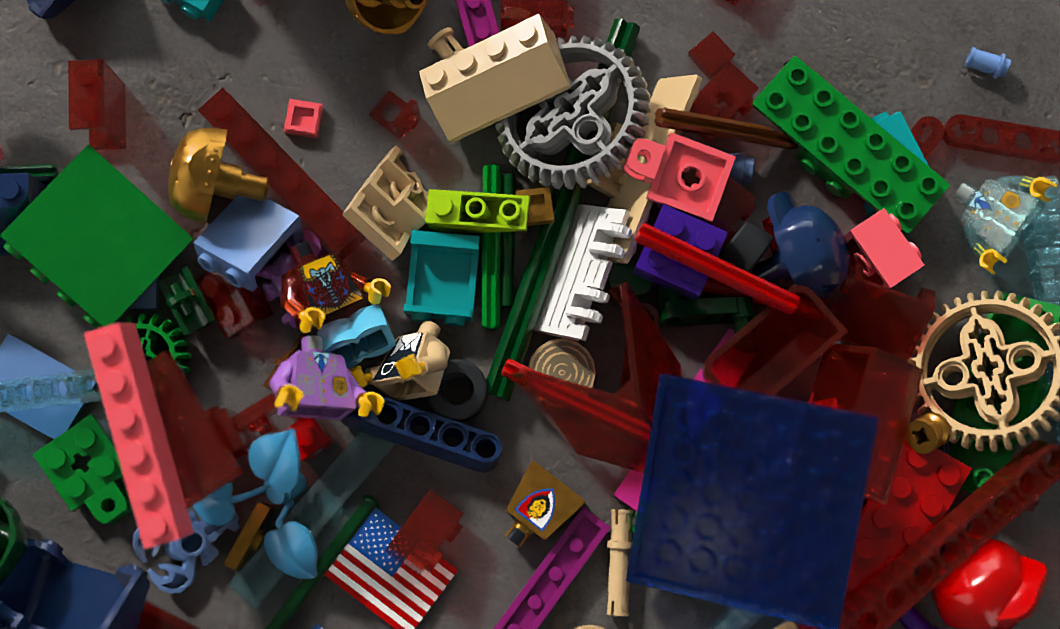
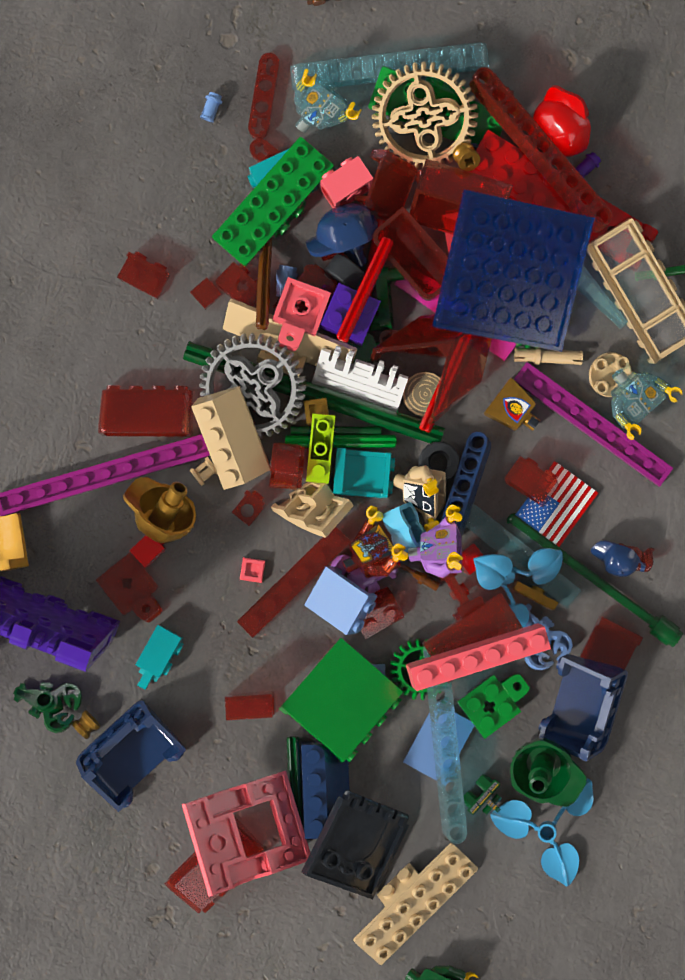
camera: 85 degrees left, 5 degrees up
(187, 301) = (381, 641): dark green hips -> none
(199, 173) = (301, 628): pearl gold piece -> none
(452, 161) = (285, 466): none -> clear red brick

